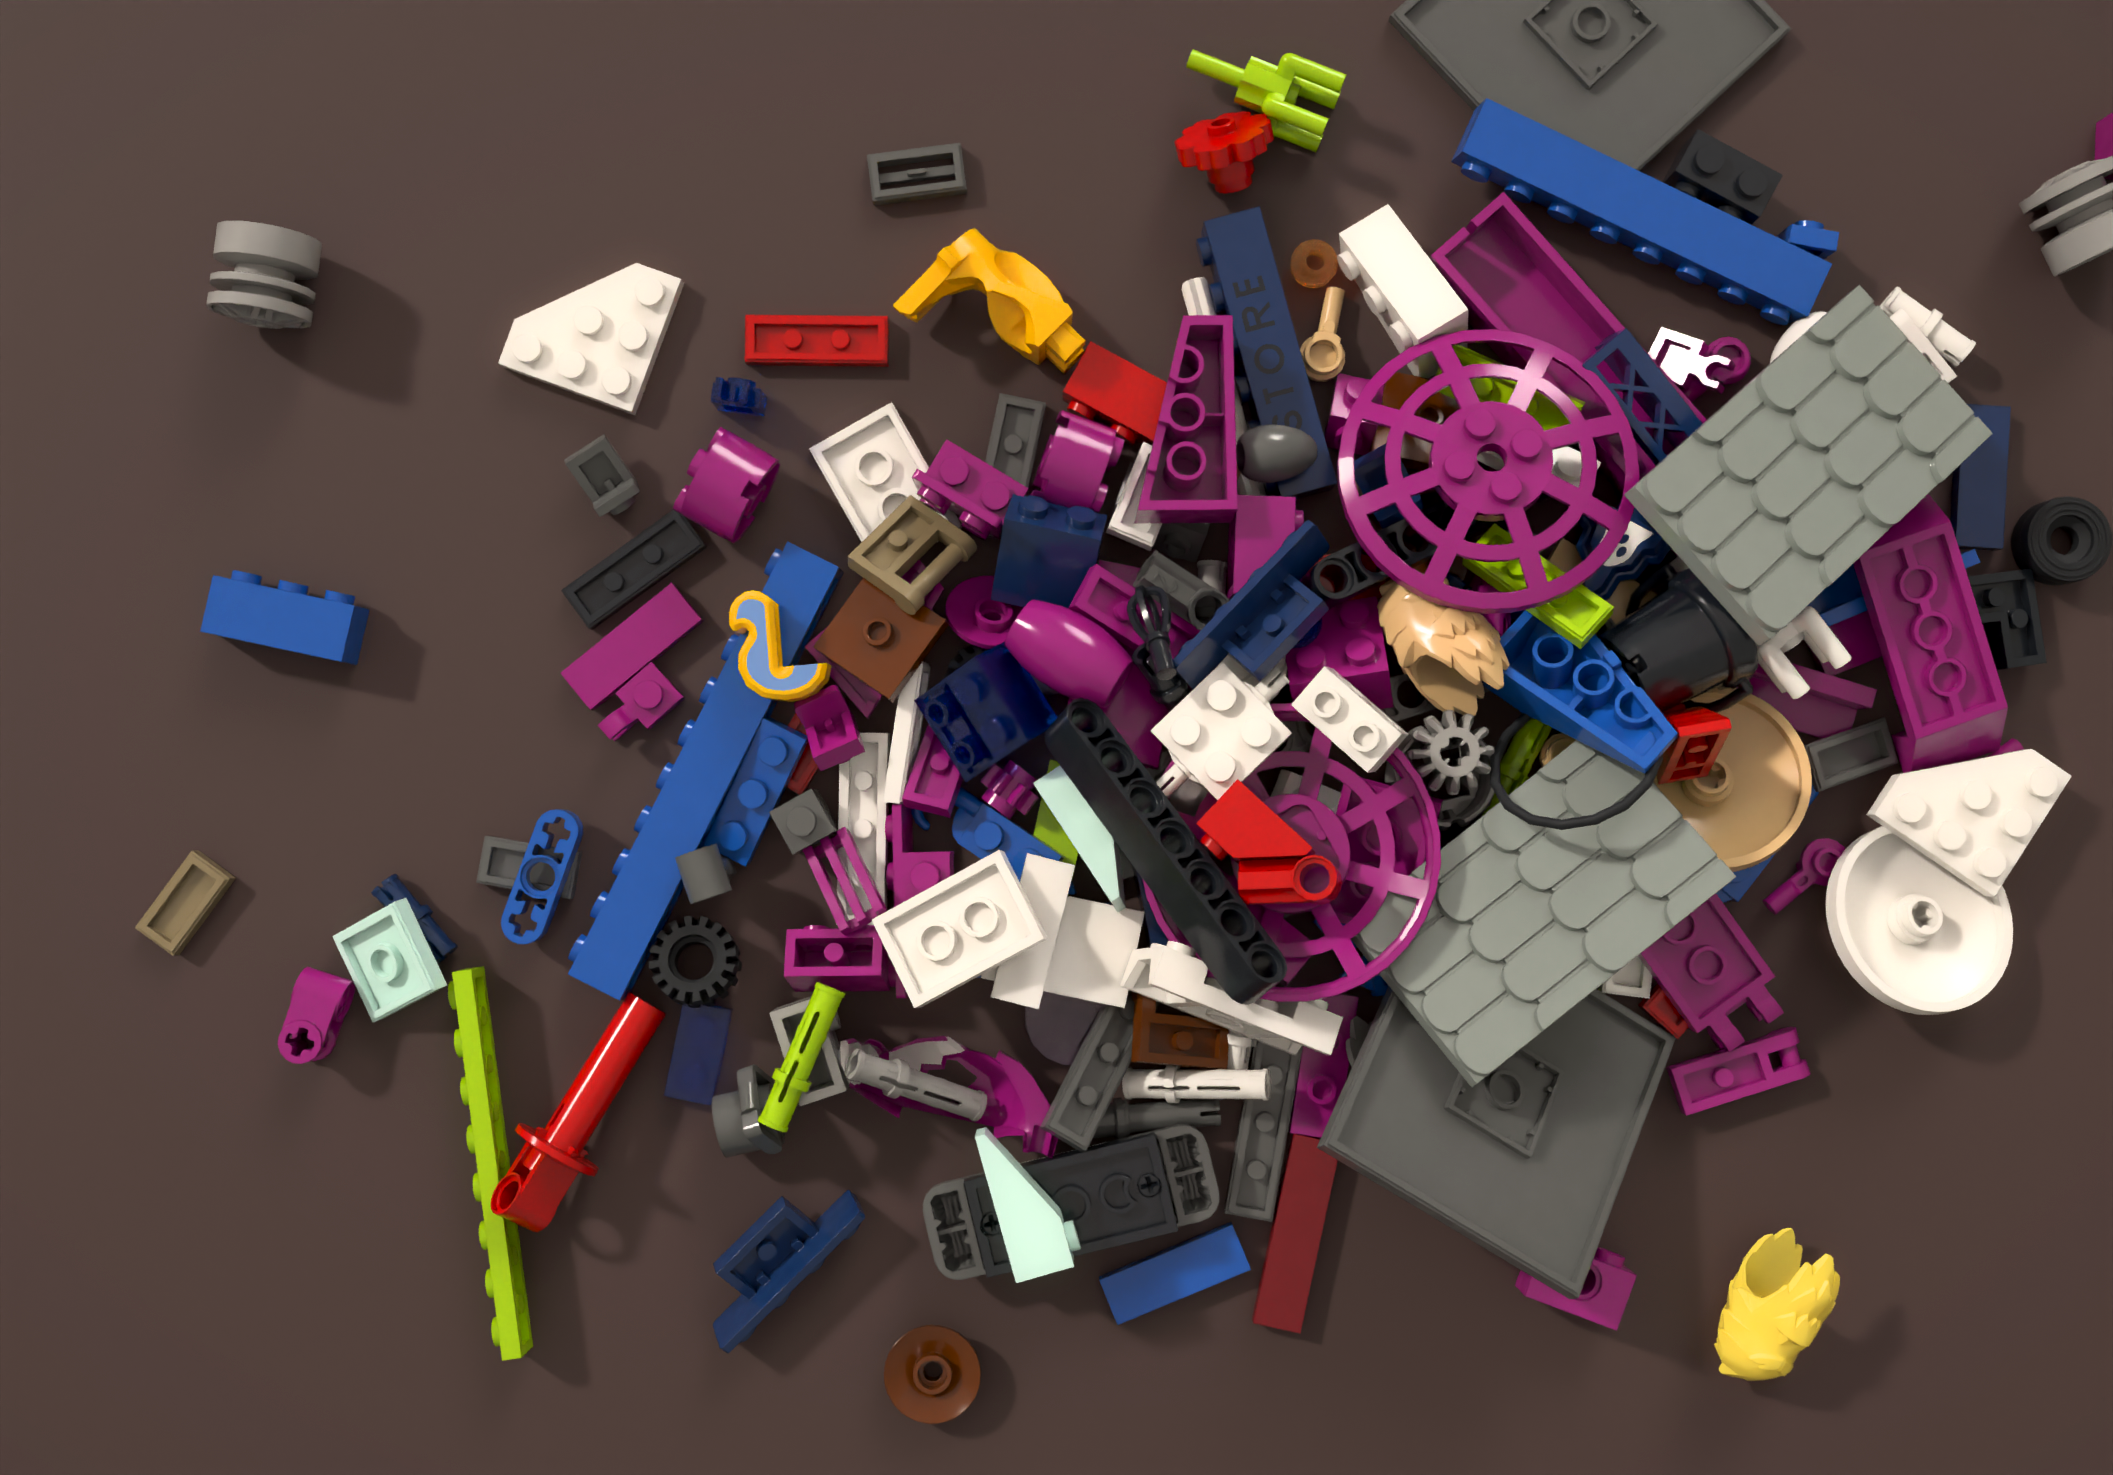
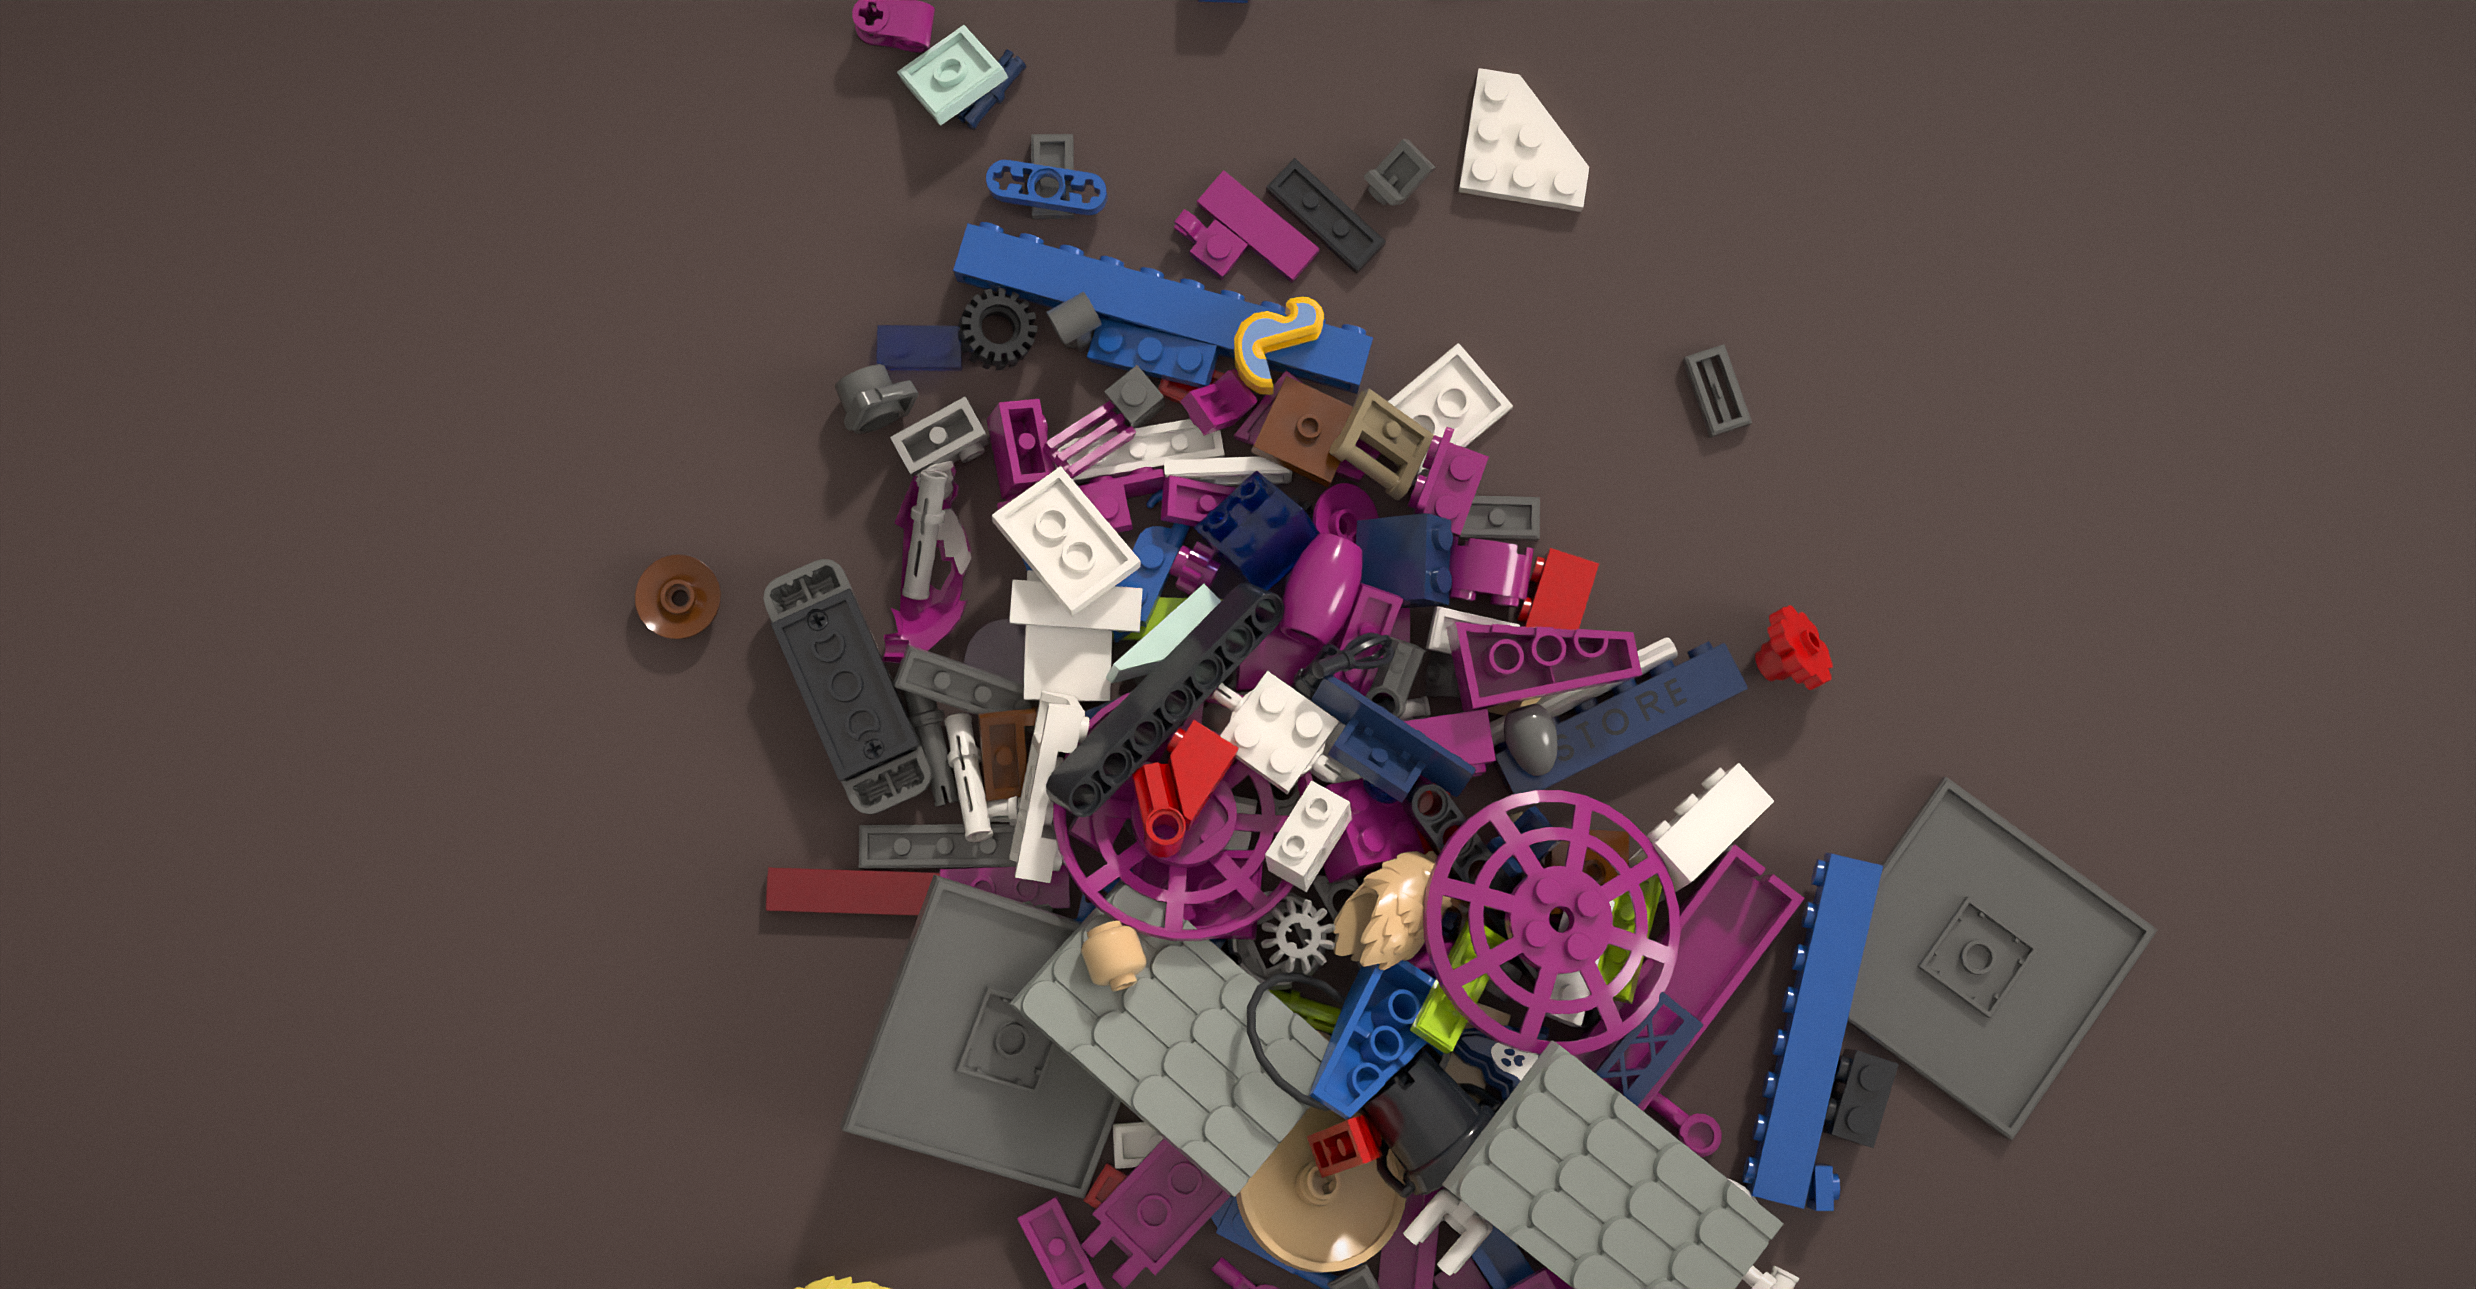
camera: 75 degrees right, 5 degrees down
(488, 1141) = (783, 196): lime plate -> none
(557, 1152) = (813, 242): red piece -> none
(727, 485) = (1411, 278): magenta brick -> none
(738, 396) = (1491, 274): clear blue plate -> none
(775, 1258) = (756, 445): dark blue bracket -> none
(779, 1106) = (931, 428): lime pin -> none
(816, 340) = (1554, 333): red tile -> none
(1019, 298) = (1627, 492): yellow hips -> none
(1028, 1218) = (830, 644): light aqua slope -> none
(1174, 1273) = (799, 791): blue tile -> none
(1275, 89) = (1854, 686): lime plant -> none
(1307, 276) = (1697, 754): clear orange plate -> none
(1322, 352) = (1630, 772): tan plate -> none
(1345, 393) = (1562, 813): magenta bracket -> none
(1444, 962) = (1113, 955): none -> tan head
(1602, 1294) = (842, 1170): magenta brick -> none
(1685, 359) = (1691, 1092): plate -> none

